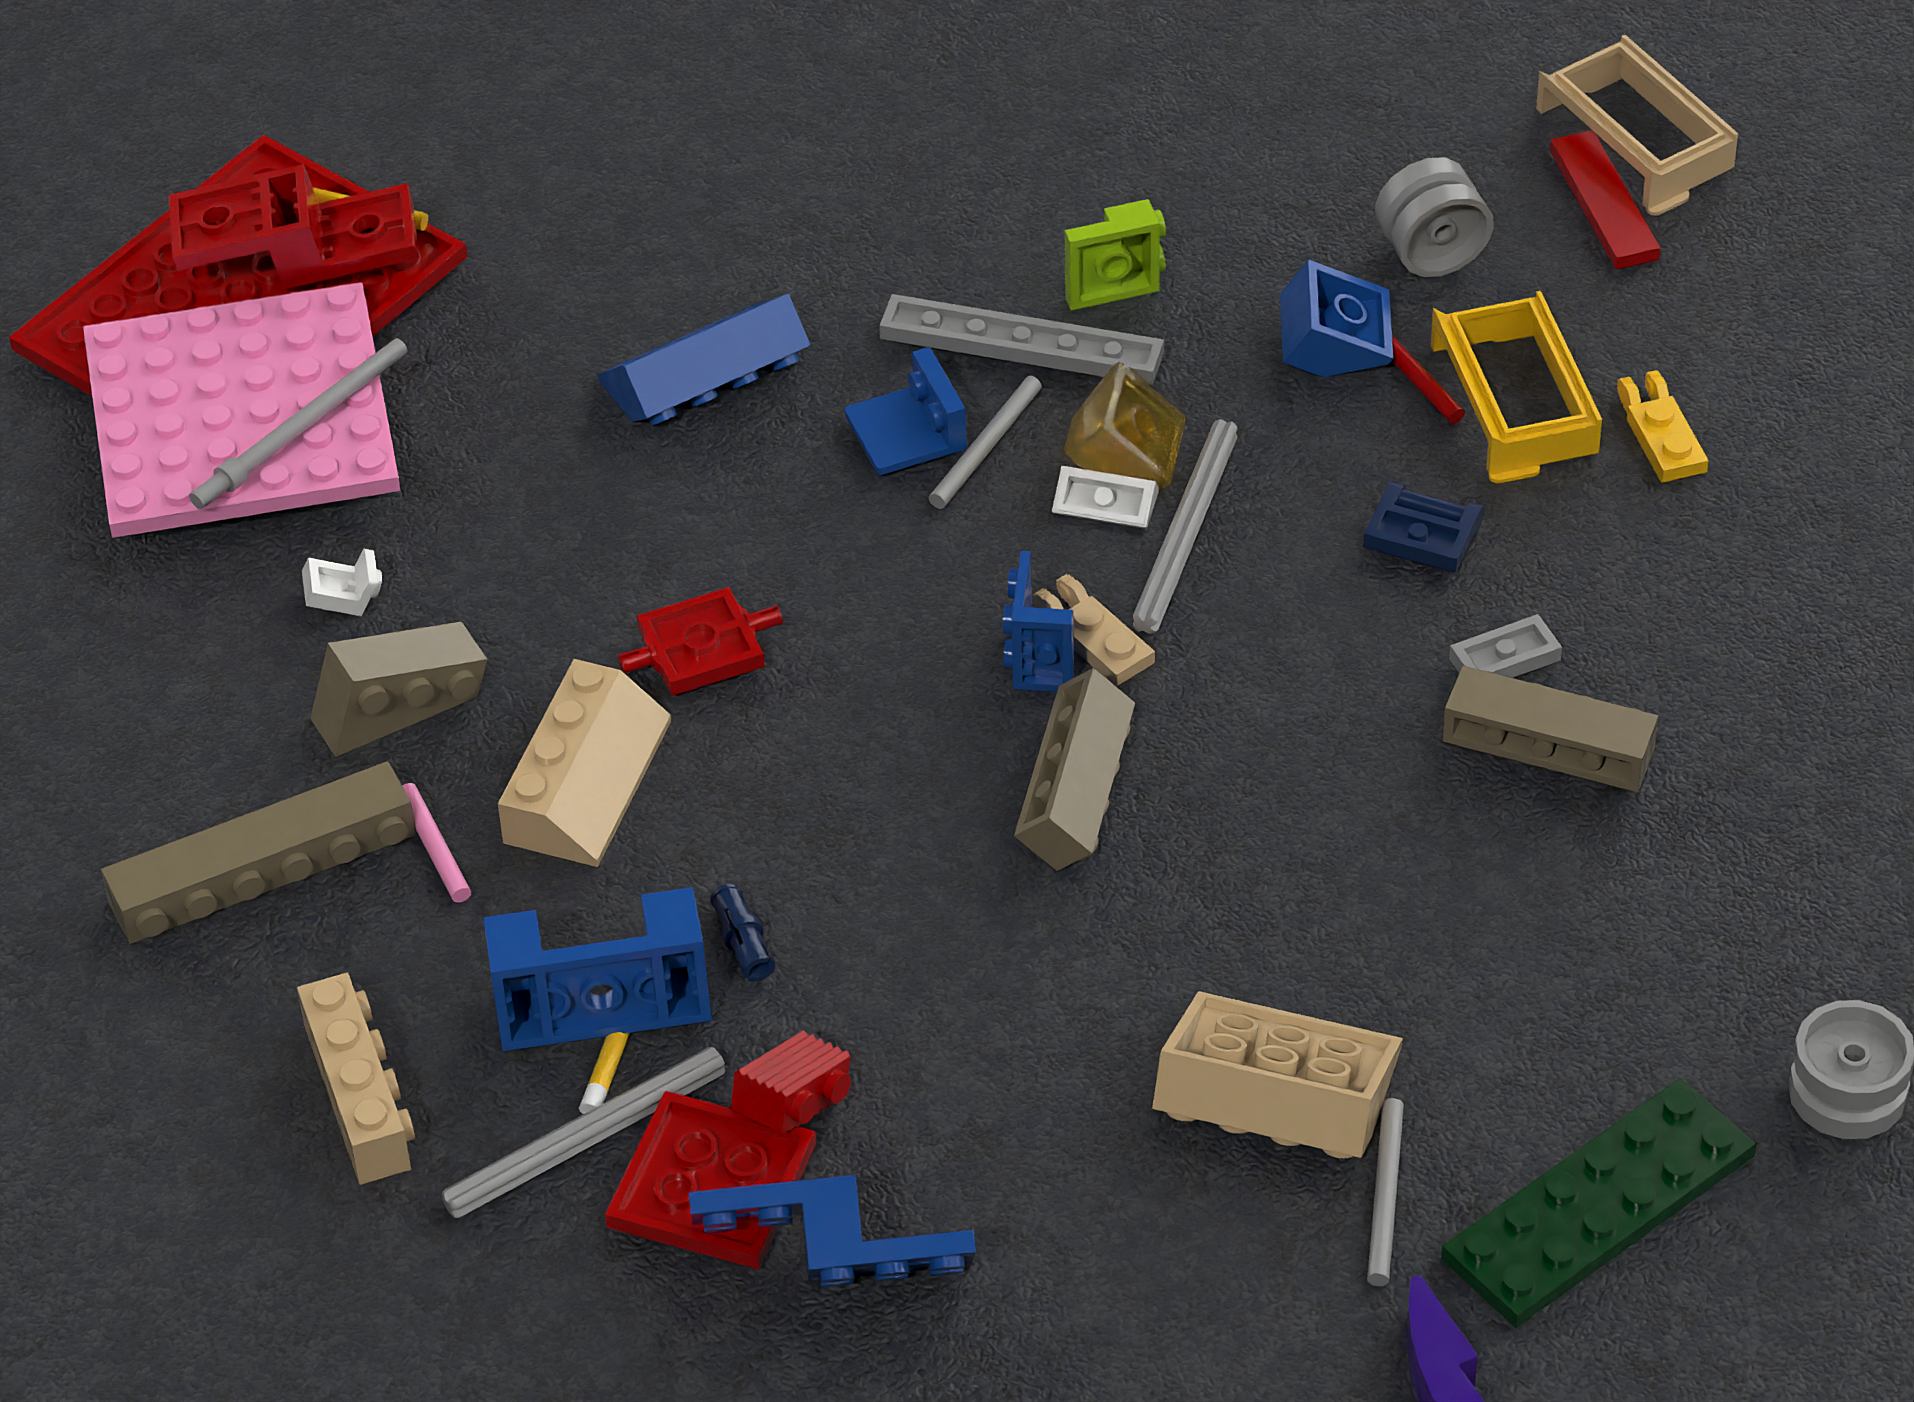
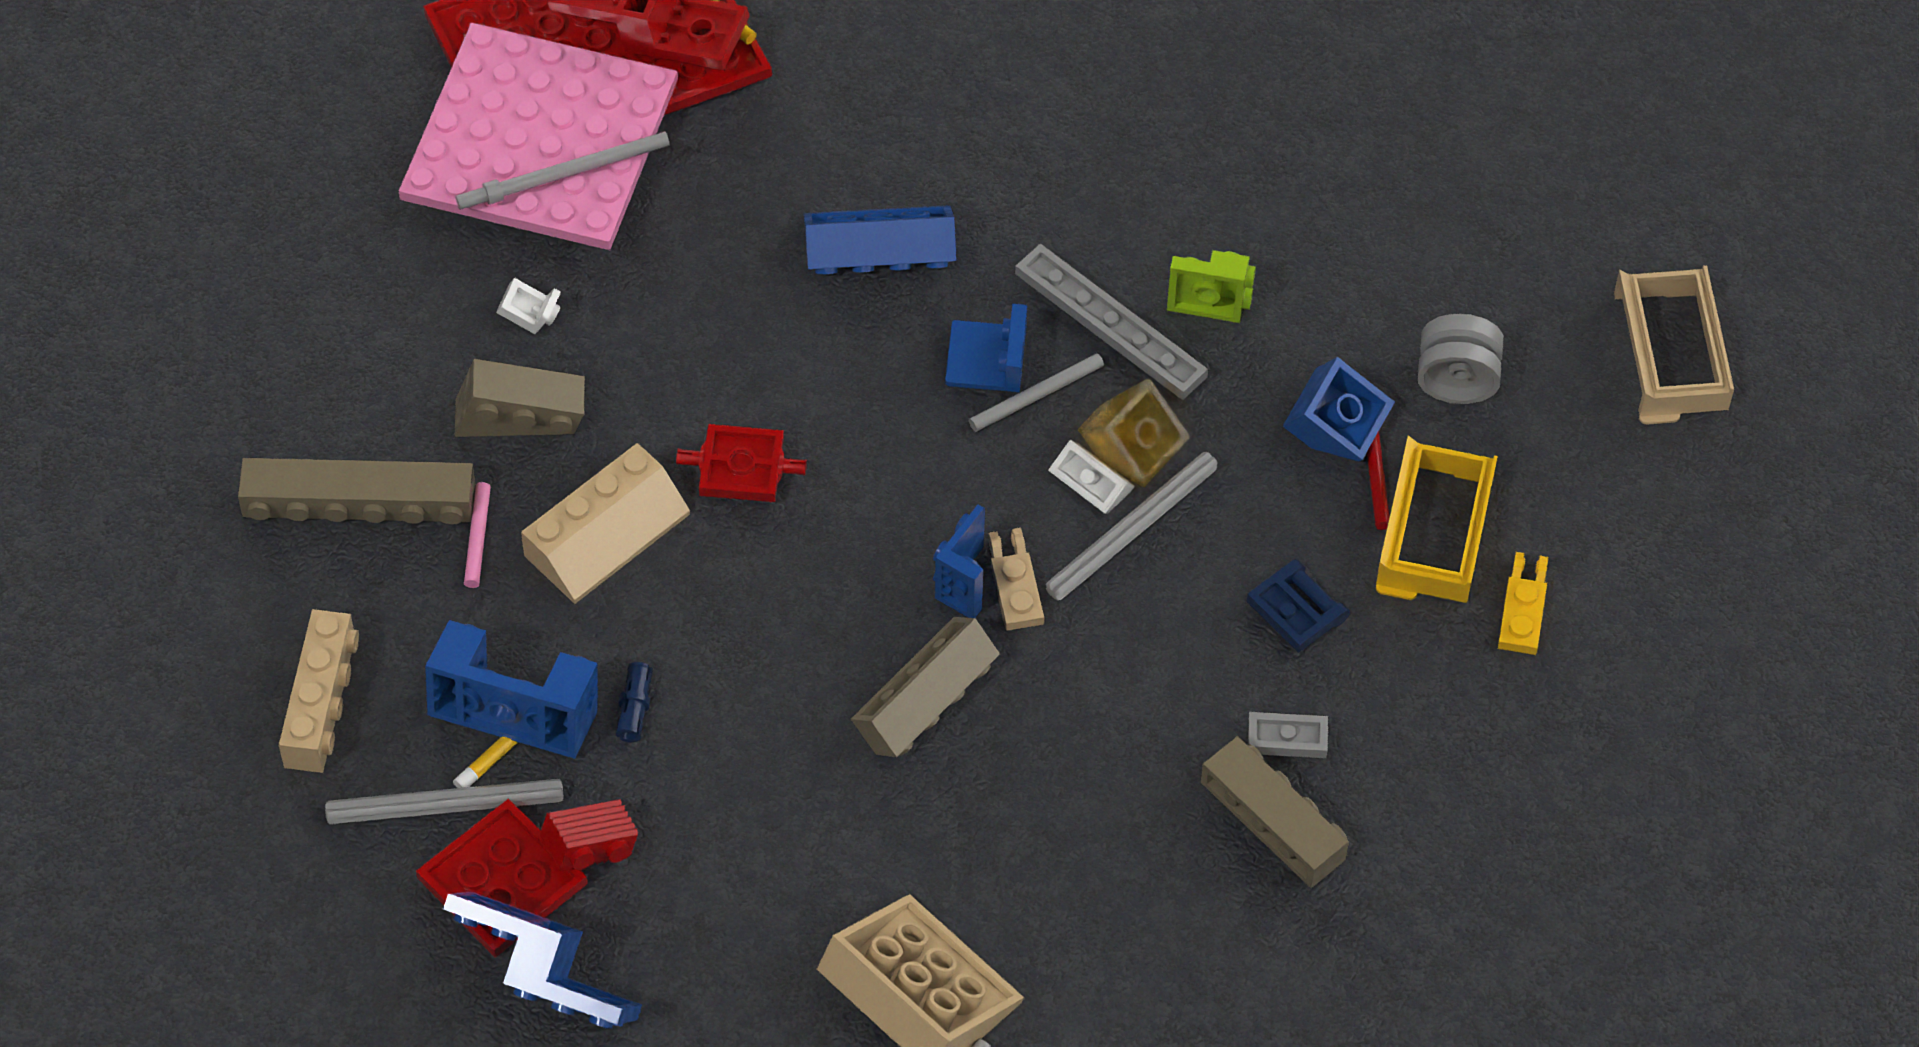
camera: 25 degrees right, 10 degrees up
(1604, 199) = (1610, 396): red tile -> none

